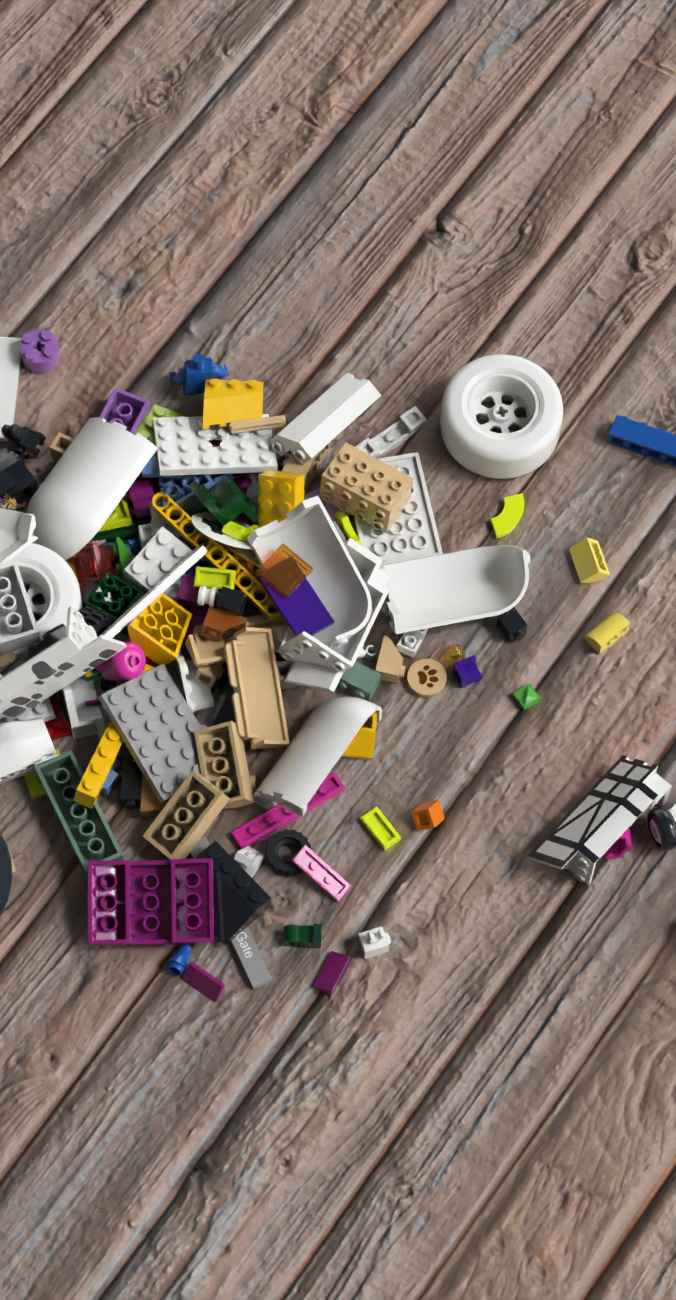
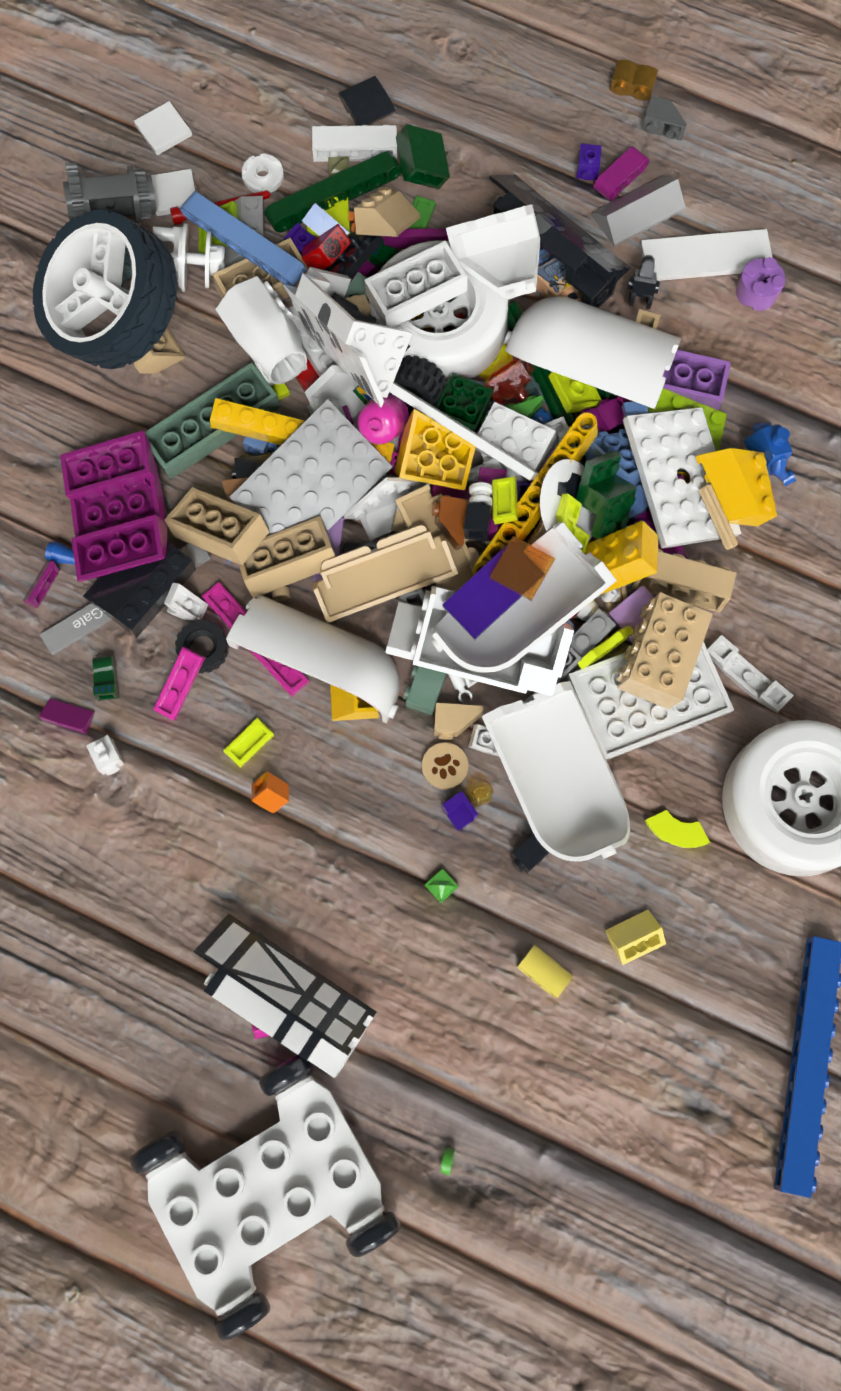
camera: 80 degrees right, 10 degrees up
(325, 418) = (745, 591): white panel -> none

